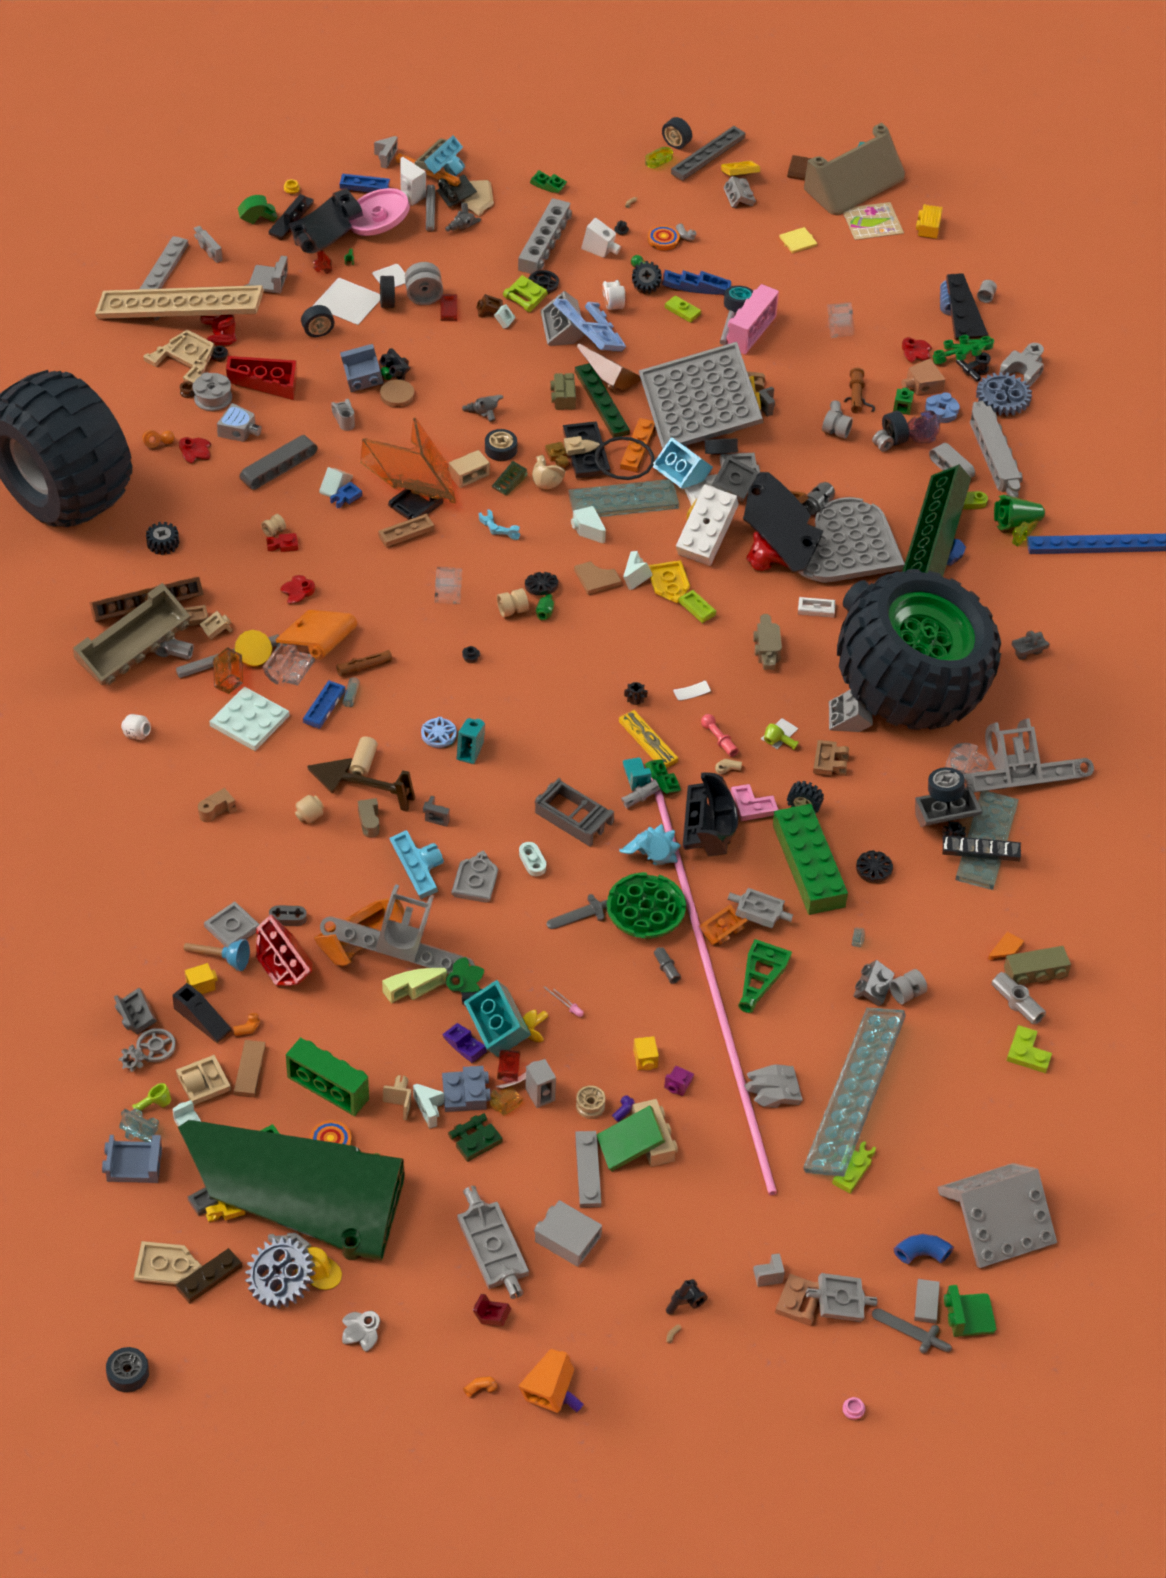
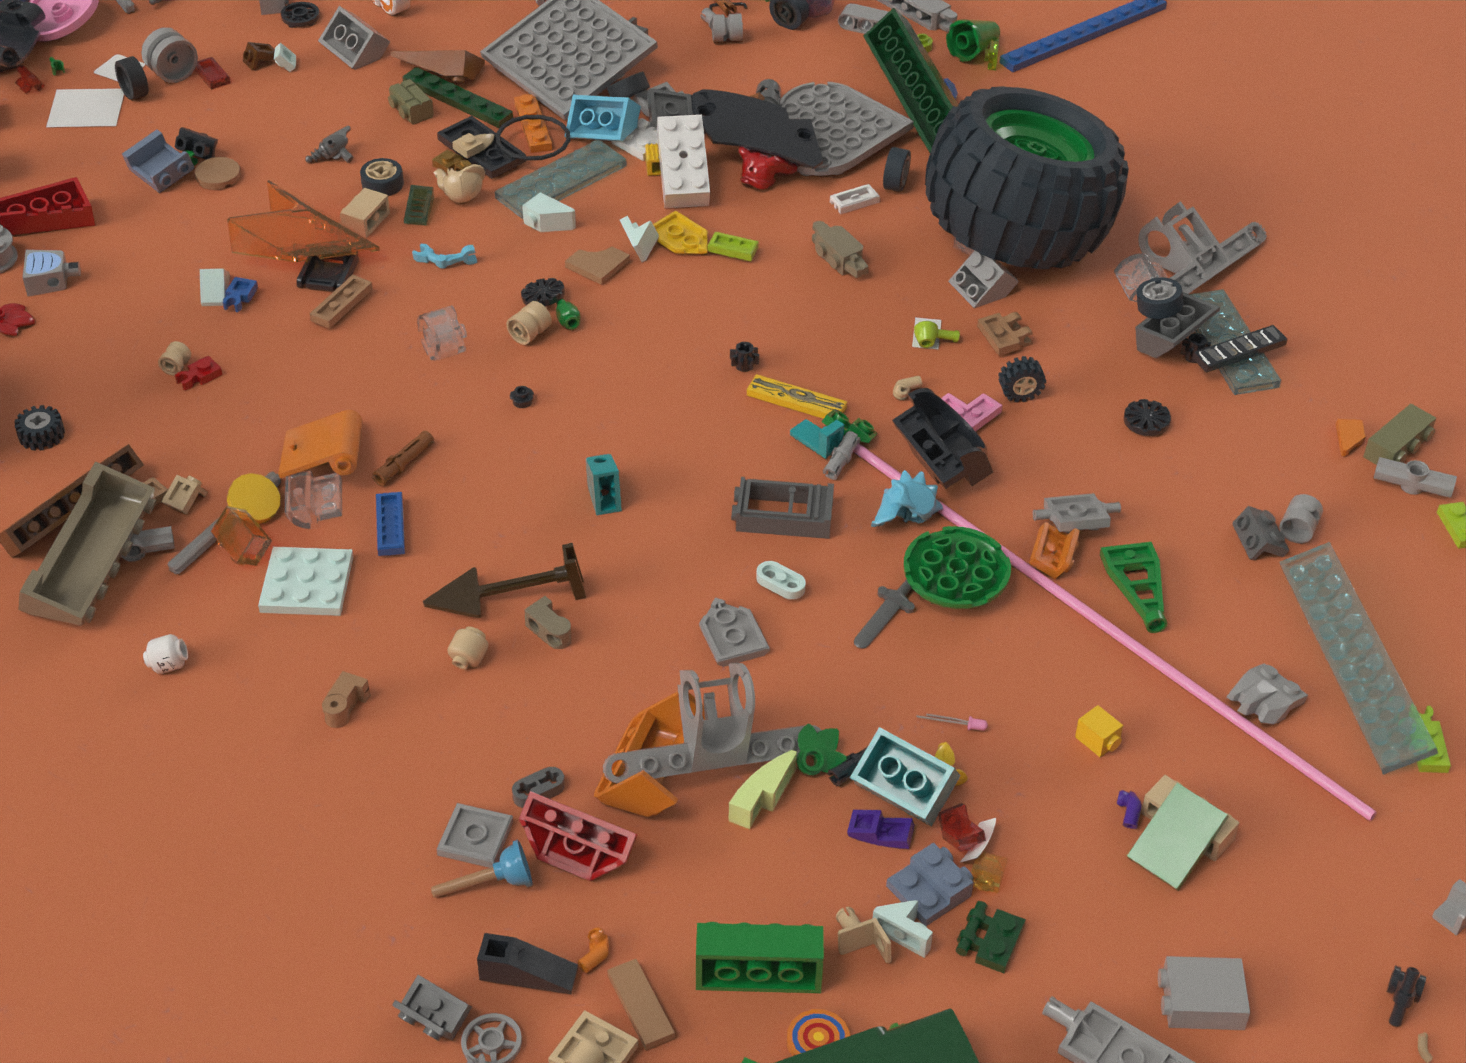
camera: 30 degrees left, 5 degrees down
(201, 978) = (489, 917): yellow brick -> none
(278, 462) = (128, 292): dark grey beam -> none
(298, 588) = (257, 413): red plate -> none
(317, 321) = (69, 133): black wheel -> none
(344, 414) = (171, 214): light grey piece -> none
(351, 692) = (412, 496): clear light blue hinge -> none
(363, 756) = (486, 558): tan brick -> none
(417, 862) = (649, 646): medium azure plate -> none
(436, 814) = (626, 582): dark grey bracket -> none
(438, 732) = (553, 494): light blue wheel -> none
(528, 290) = (290, 29): lime plate -> none
(540, 1083) = (1020, 826): light grey brick -> none
(588, 1095) = (1088, 810): tan wheel -> none
(588, 1169) = (1153, 903): light grey plate -> none
(600, 333) = (391, 26): light blue wing -> none
(667, 965) = (1031, 622): dark grey axle -> none
(678, 1080) = (1159, 744): magenta bracket -> none
(692, 691) = (799, 330): white sticker -> none
(709, 722) = (847, 352): coral pin -> none
(810, 859) = (1080, 439): green brick -> none
(858, 937) = (1201, 494): clear light blue tile -> none
(883, 440) = (783, 26): light grey wheel -> none

